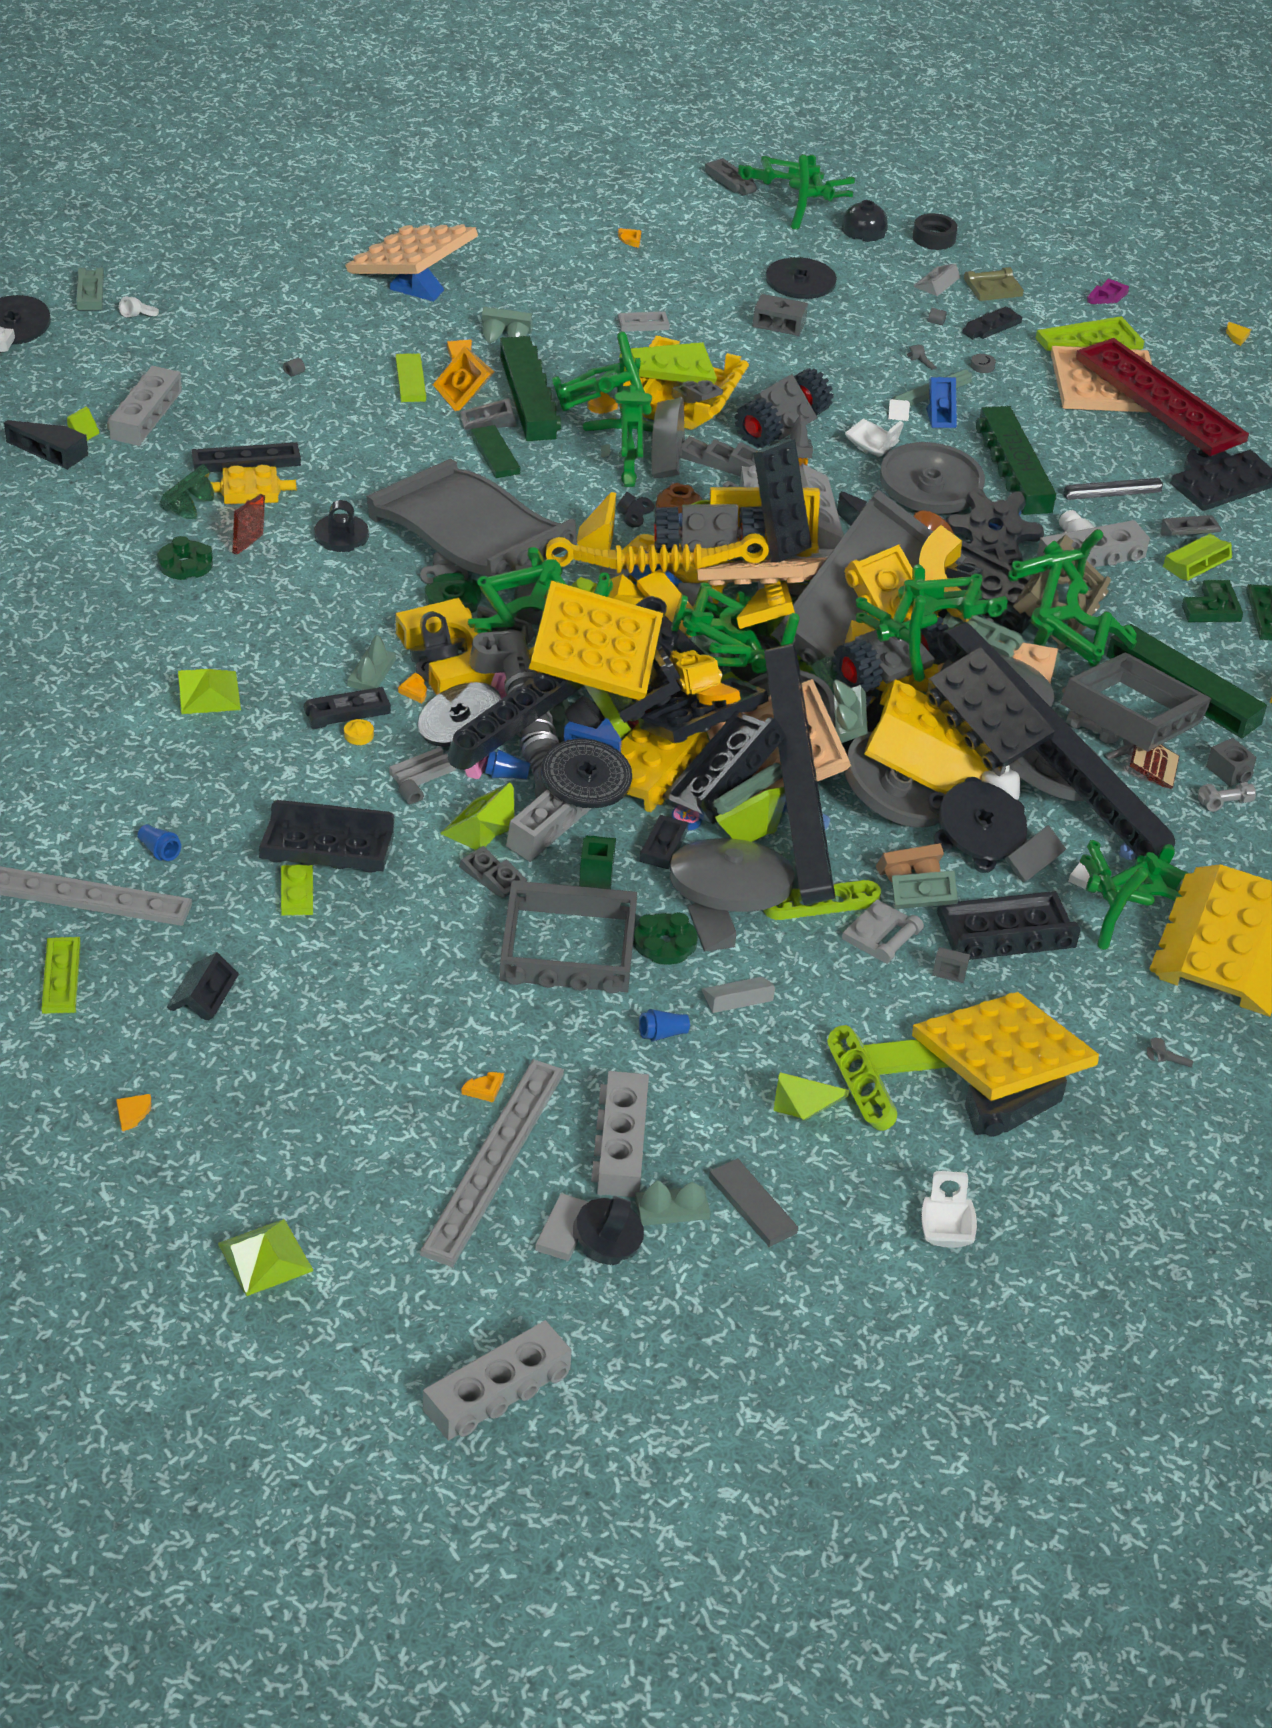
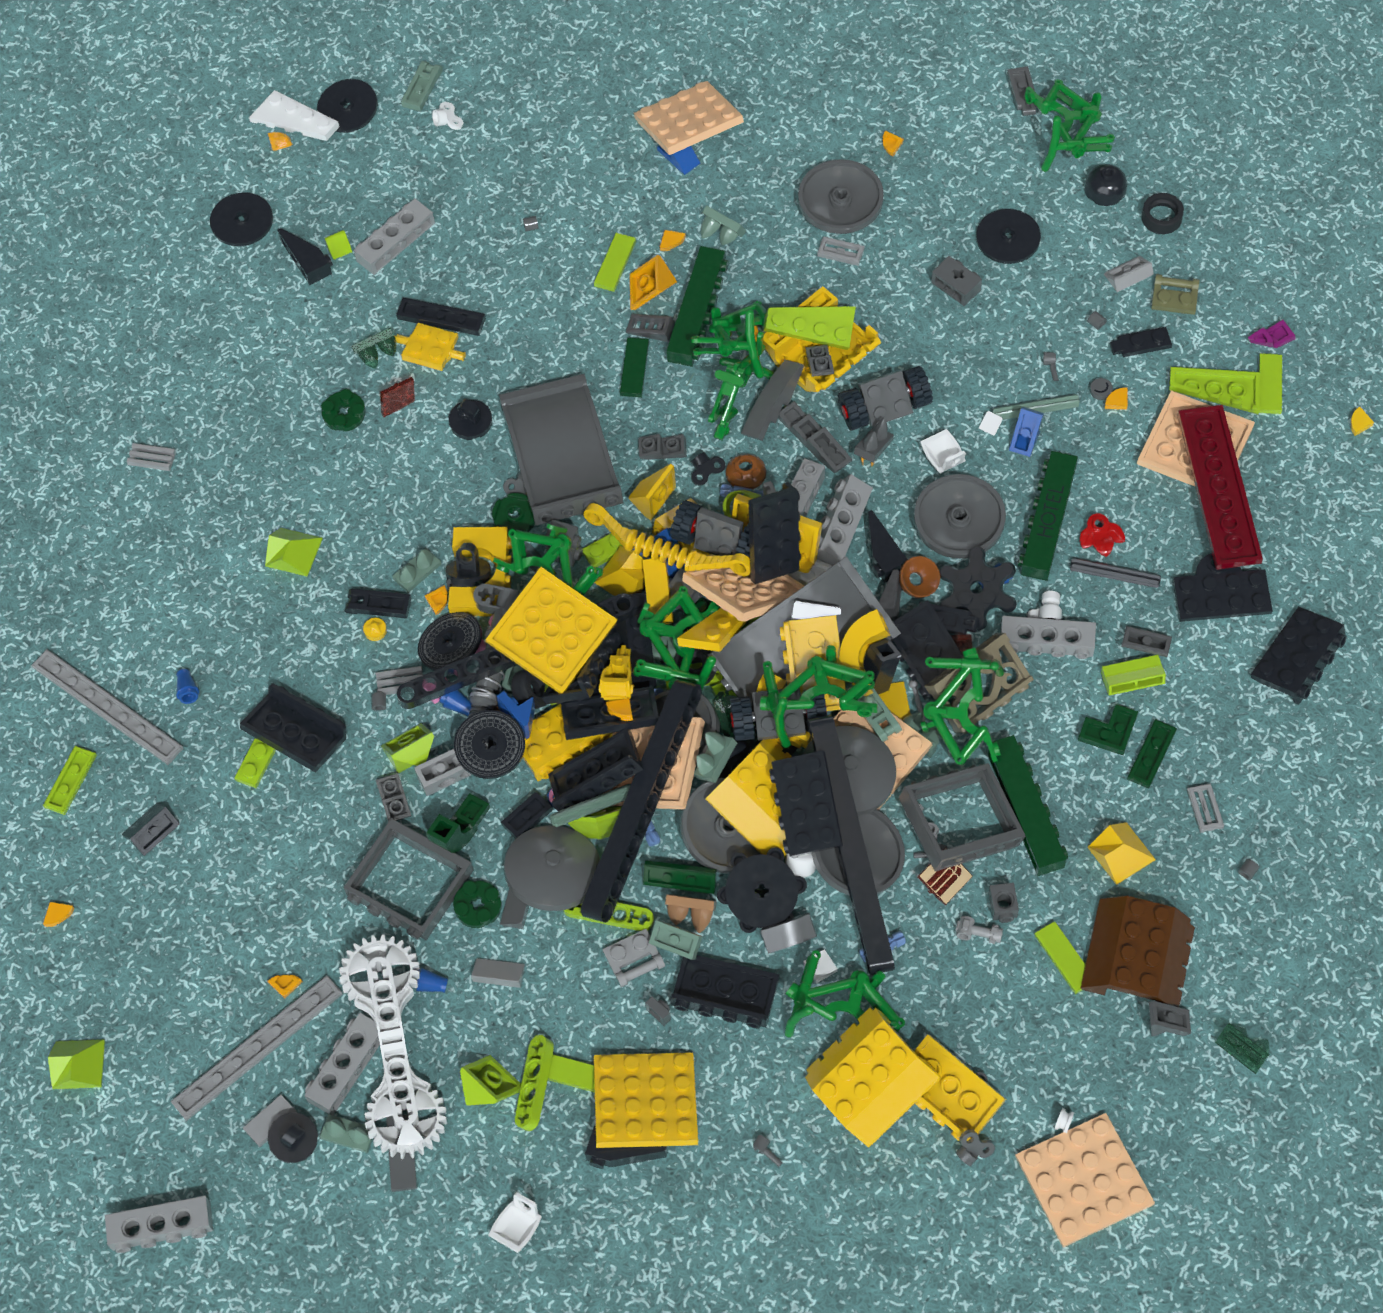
camera: 35 degrees right, 20 degrees up
(567, 506) = (662, 448): none -> dark grey slope
(615, 277) = (840, 196): none -> dark grey dish
(706, 1133) = (393, 1047): none -> white beam
(868, 545) = (809, 610): none -> slope
(873, 842) = (679, 877): none -> dark green tile
(1006, 367) = (1117, 399): none -> light orange tile
(1074, 463) = (1103, 537): none -> red plate
(1137, 322) = (1270, 383): none -> lime tile

